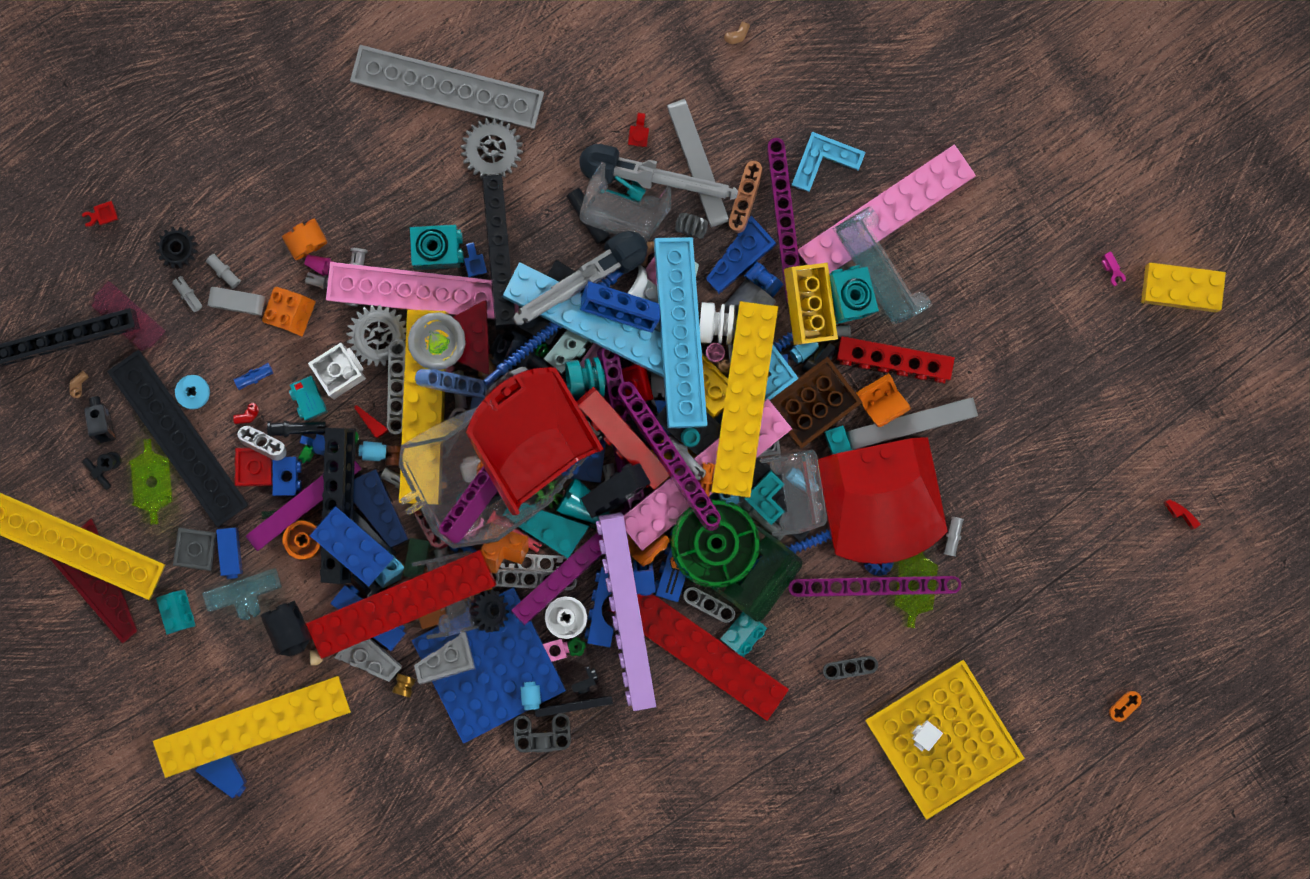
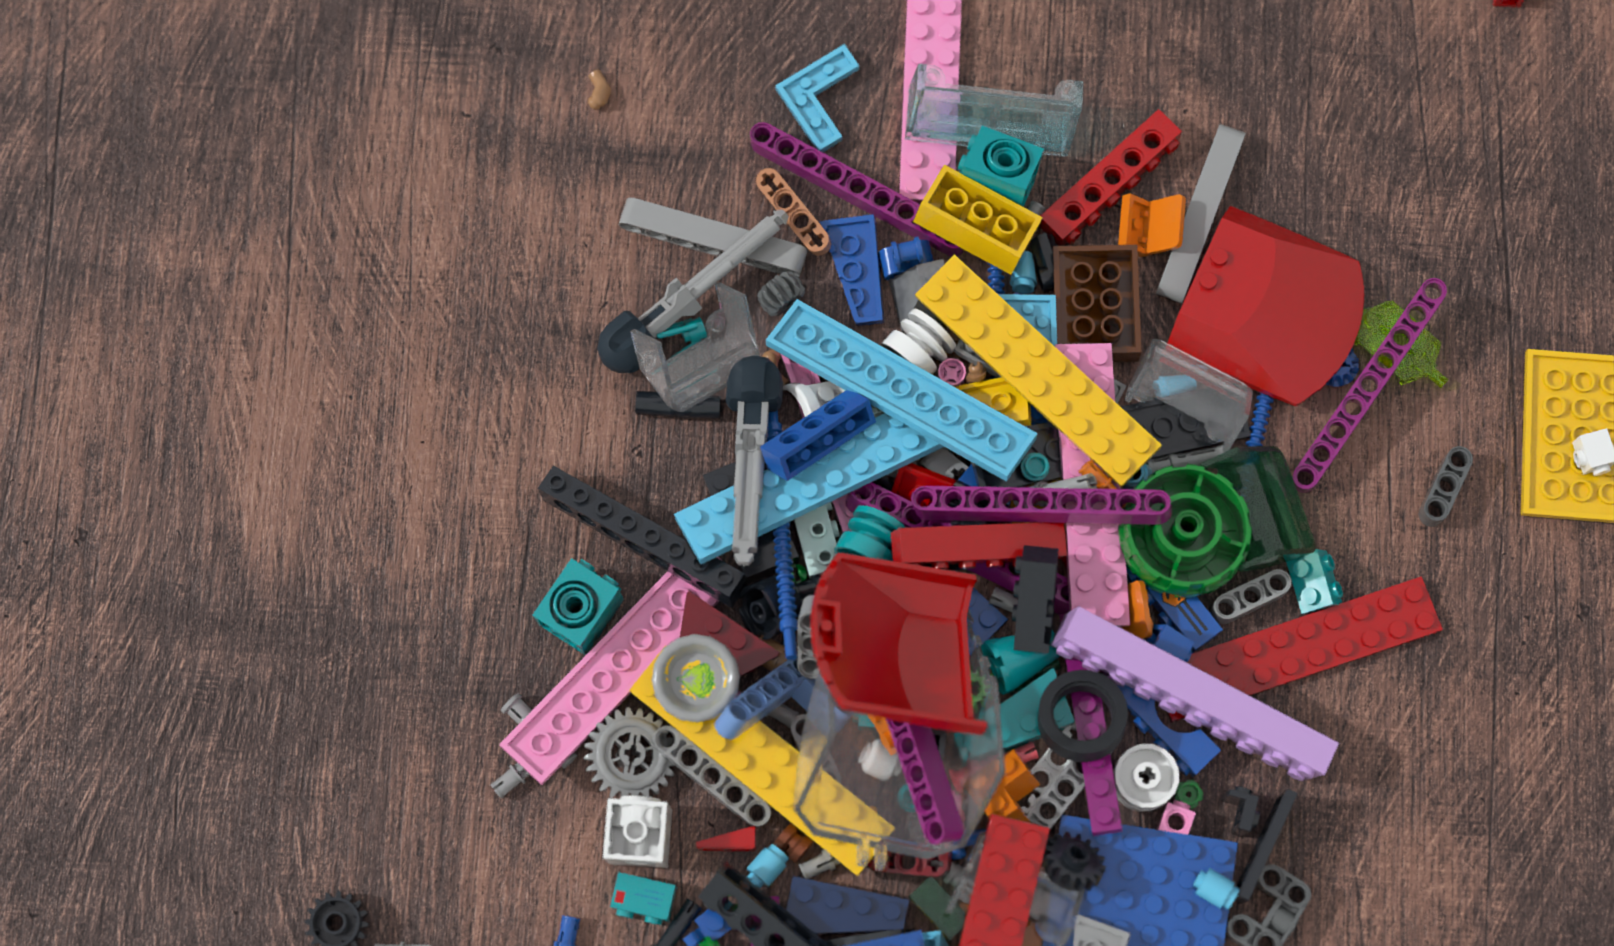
camera: 45 degrees left, 10 degrees down
(223, 271) = (409, 887): light grey pin -> none
(236, 301) = (457, 898): light grey beam -> none
(288, 311) = (518, 843): orange bracket -> none
(304, 239) = (448, 756): orange brick -> none
(318, 264) = (491, 764): dark pink cone -> none
(447, 87) = (399, 459): light grey plate -> none
(474, 142) = (491, 475): light grey gear -> none
(474, 263) = (632, 577): blue plate -> none
(591, 549) = (1082, 682): none -> black tyre
(639, 134) = (627, 280): red plate -> none
(762, 496) = (1175, 441): teal plate -> none
(837, 440) = (1160, 309): teal brick -> none
(953, 536) = (1369, 259): light grey pin -> none

